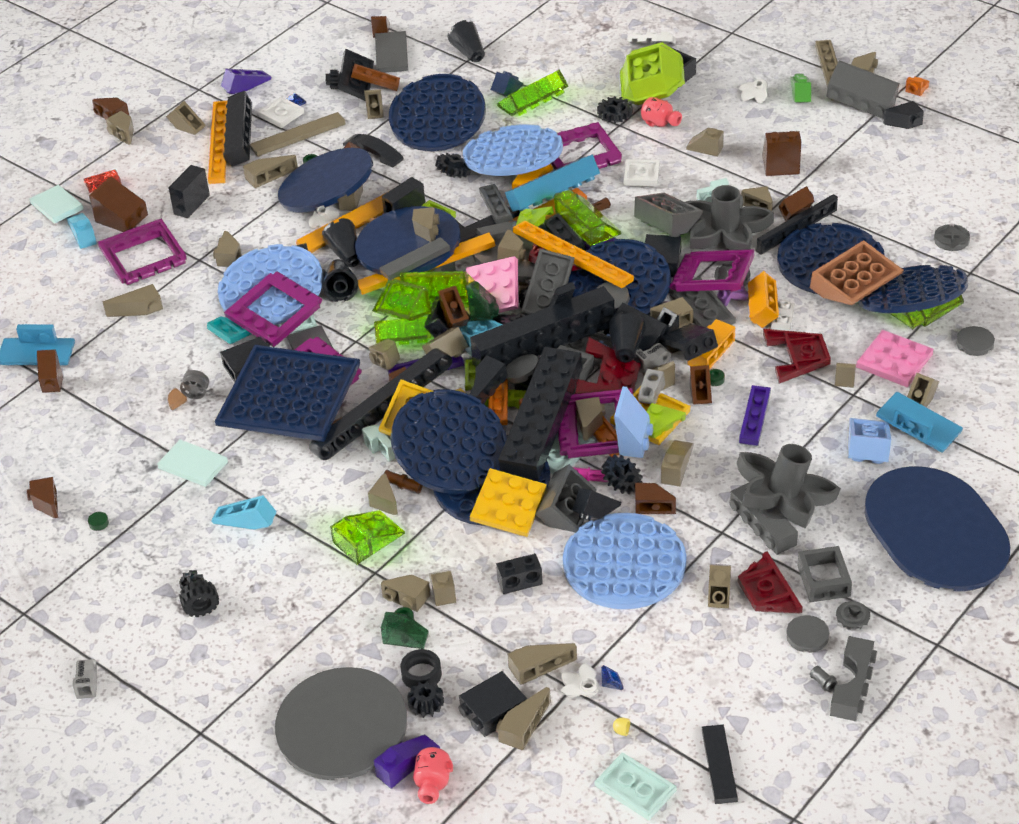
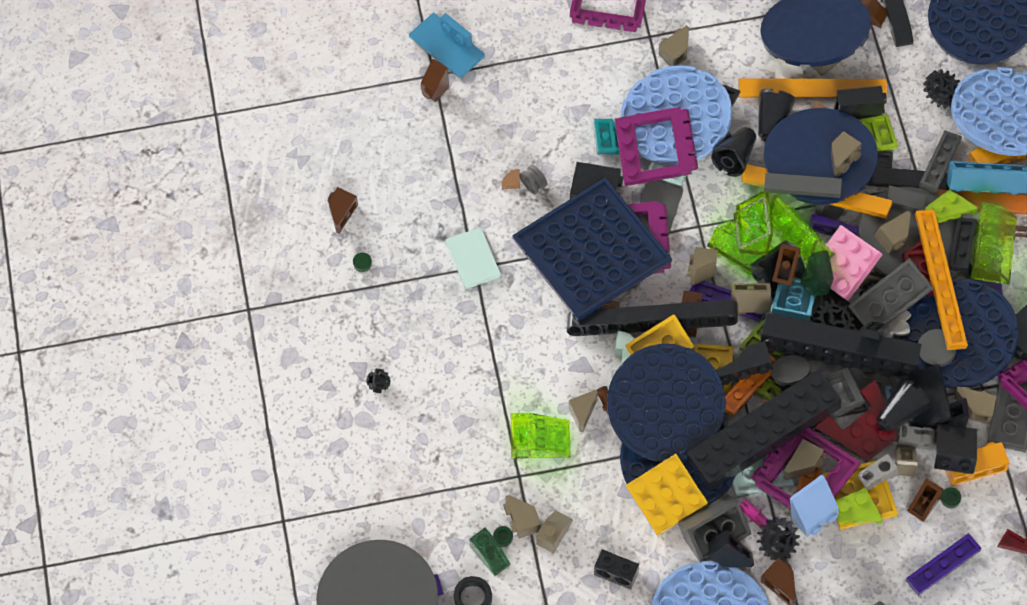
camera: 40 degrees right, 20 degrees up
(85, 676) = (242, 408): light grey leg -> none
(134, 303) = (561, 52): dark tan slope -> none
(190, 598) = (369, 401): black tyre -> none
(247, 514) = (468, 344): medium azure slope -> none
(675, 462) = (837, 558): dark tan slope -> none

